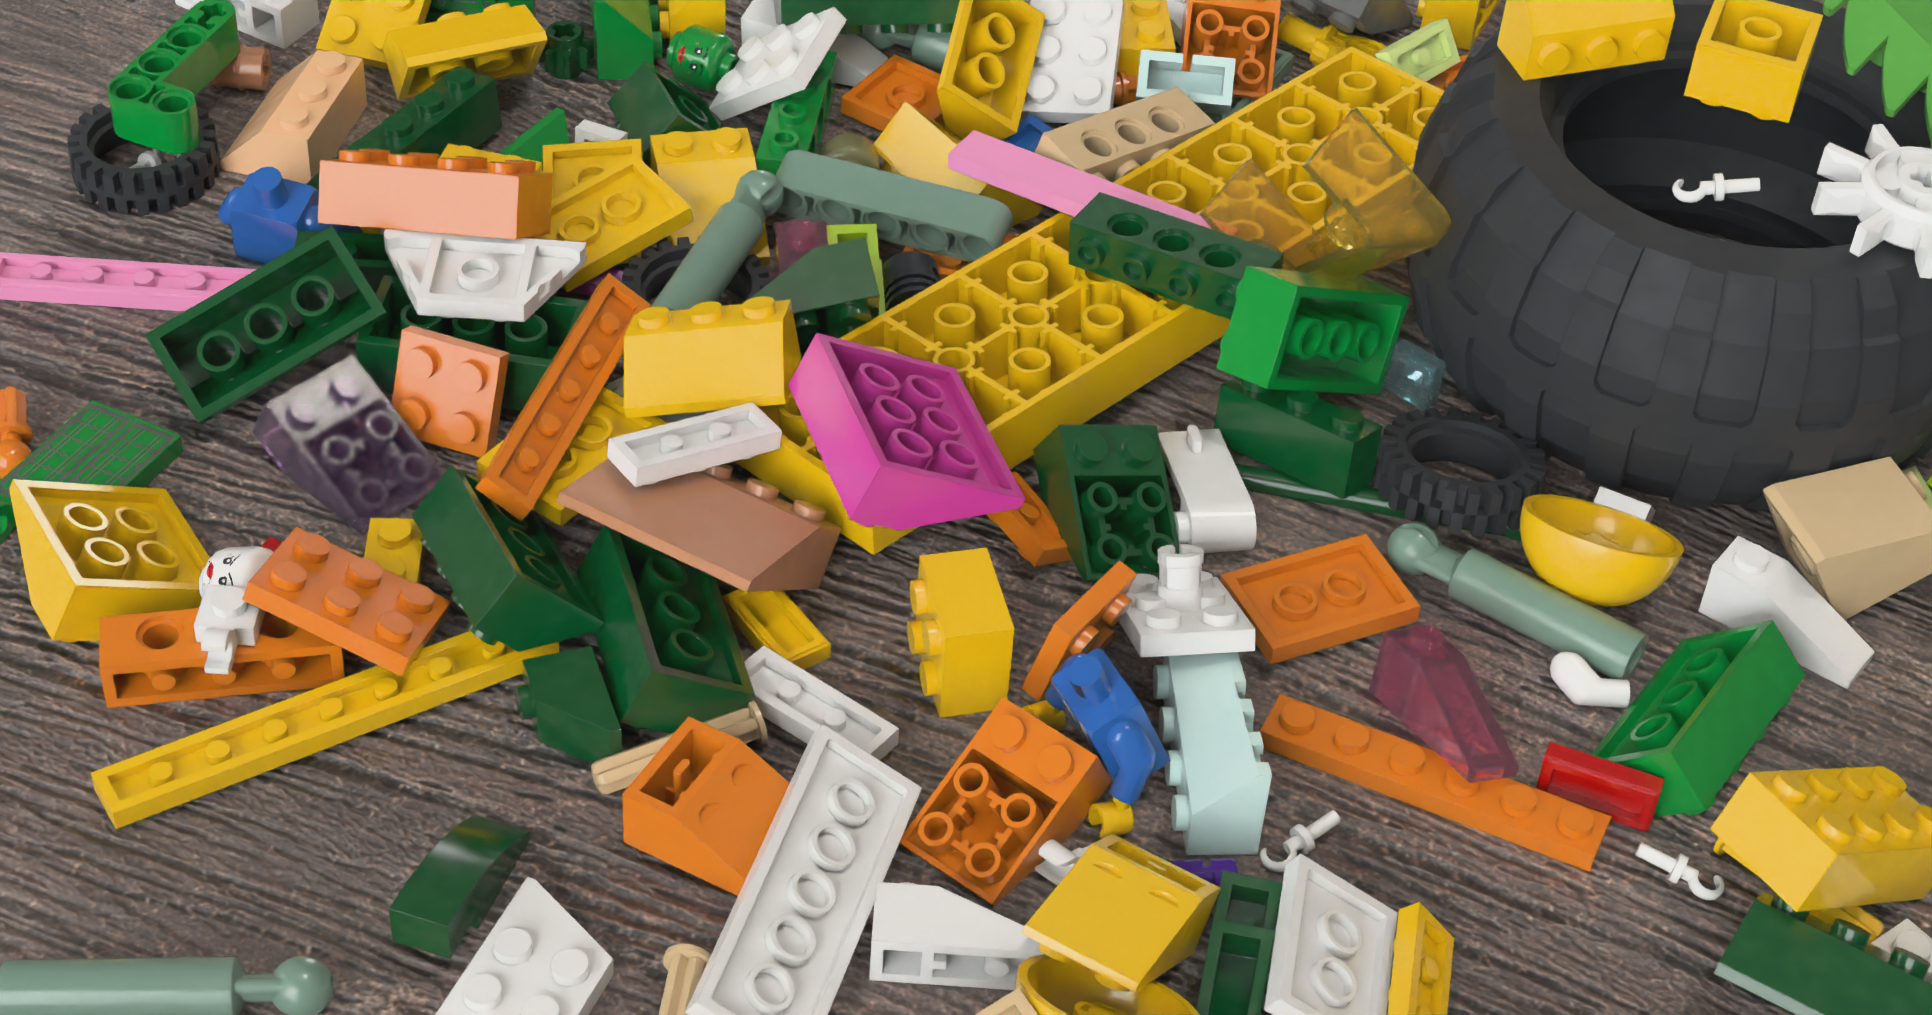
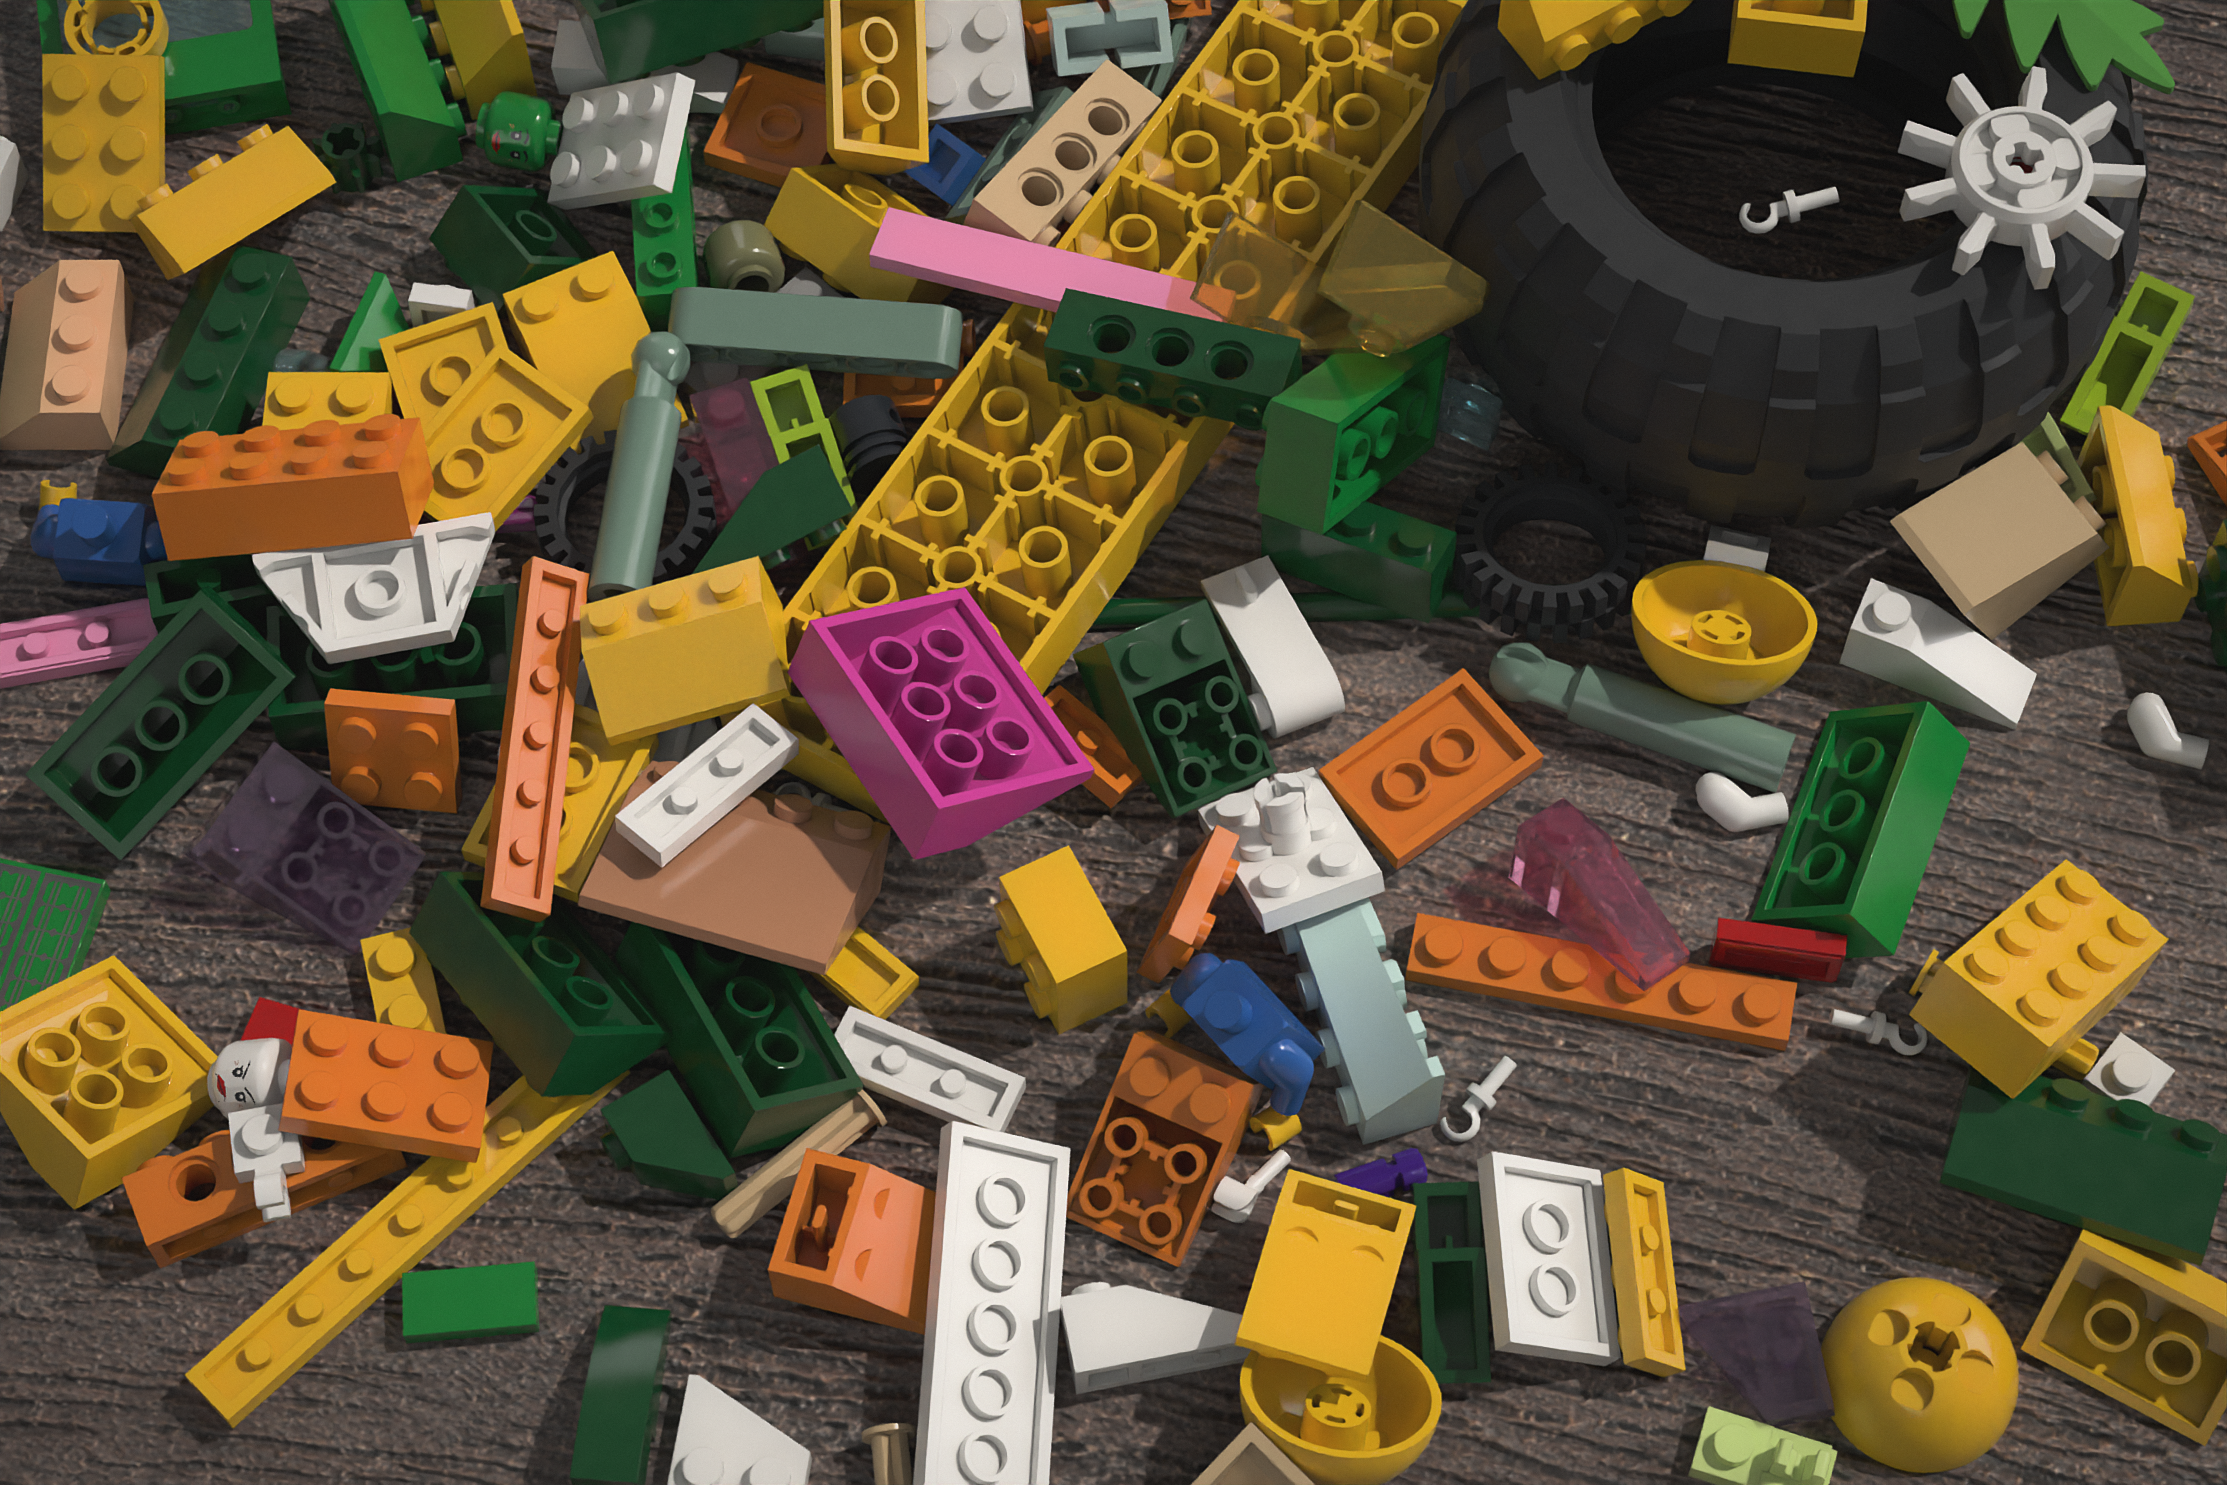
camera: 10 degrees left, 20 degrees up
(358, 786) = (470, 1302): none -> green tile

